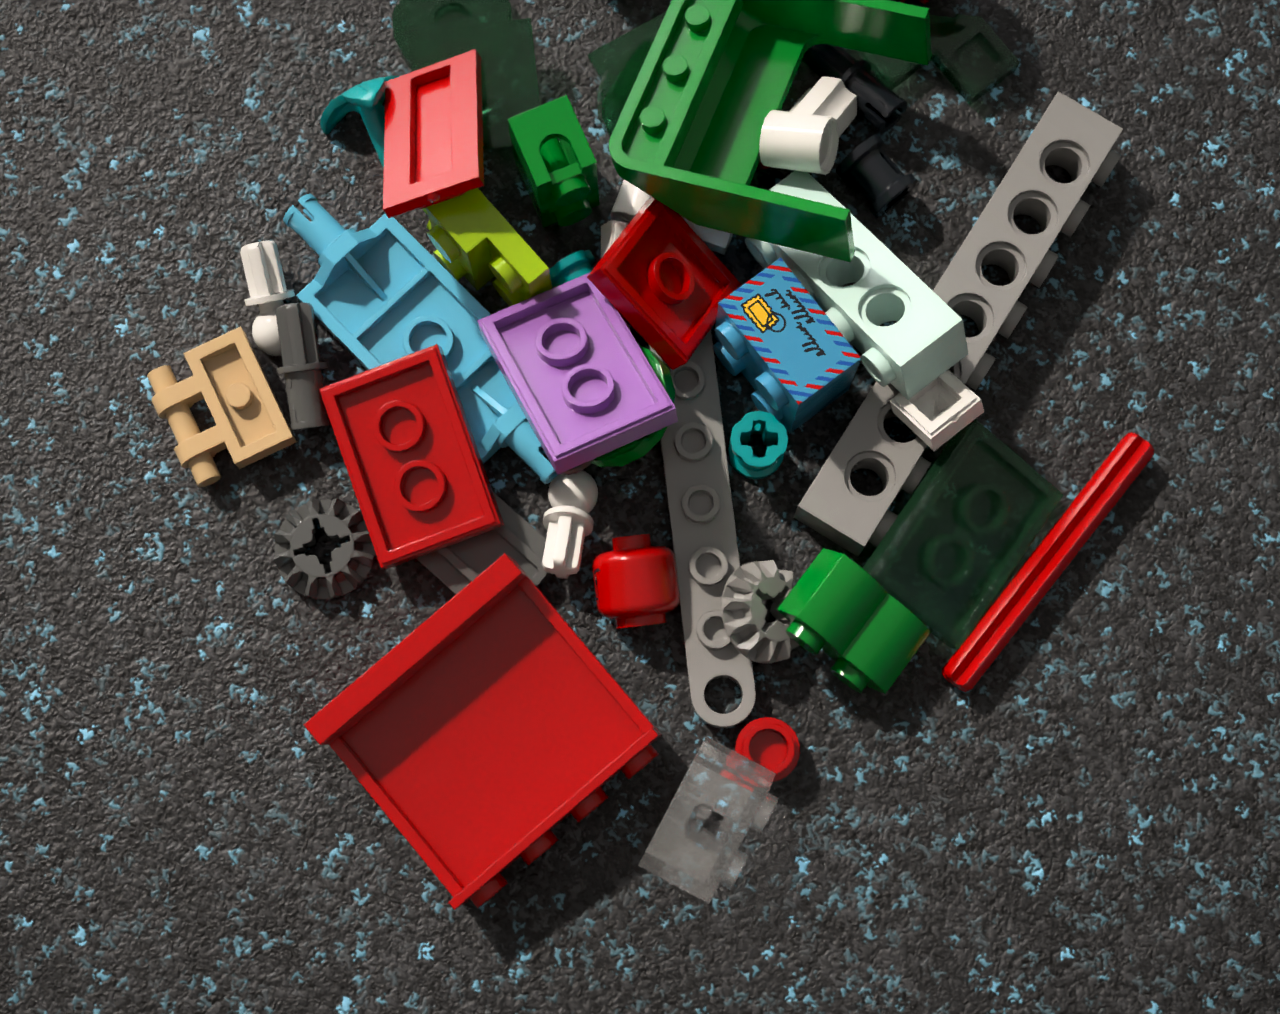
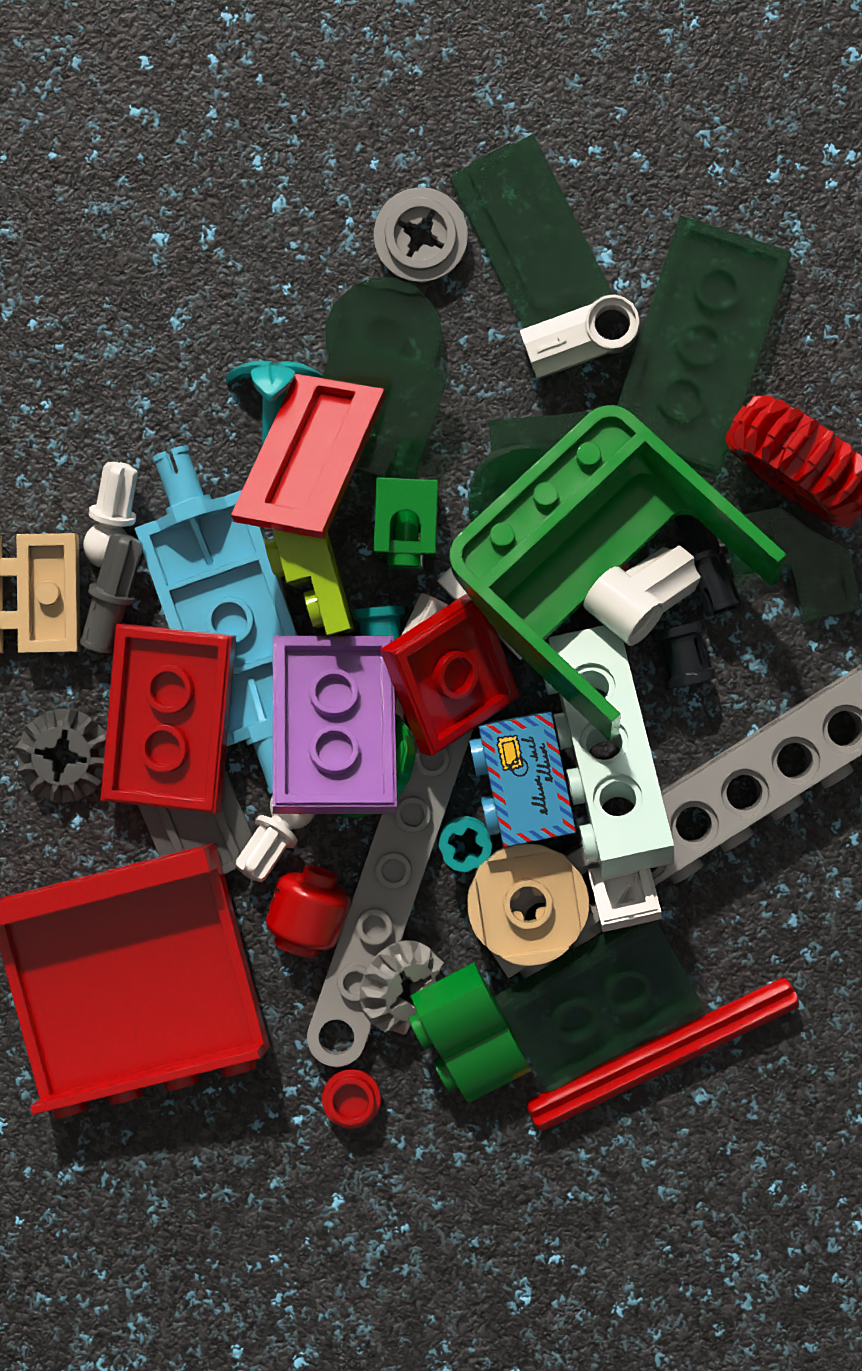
camera: 30 degrees right, 10 degrees up
(686, 851) = (244, 1149): clear brick -> none
(855, 423) = (556, 923): none -> tan plate

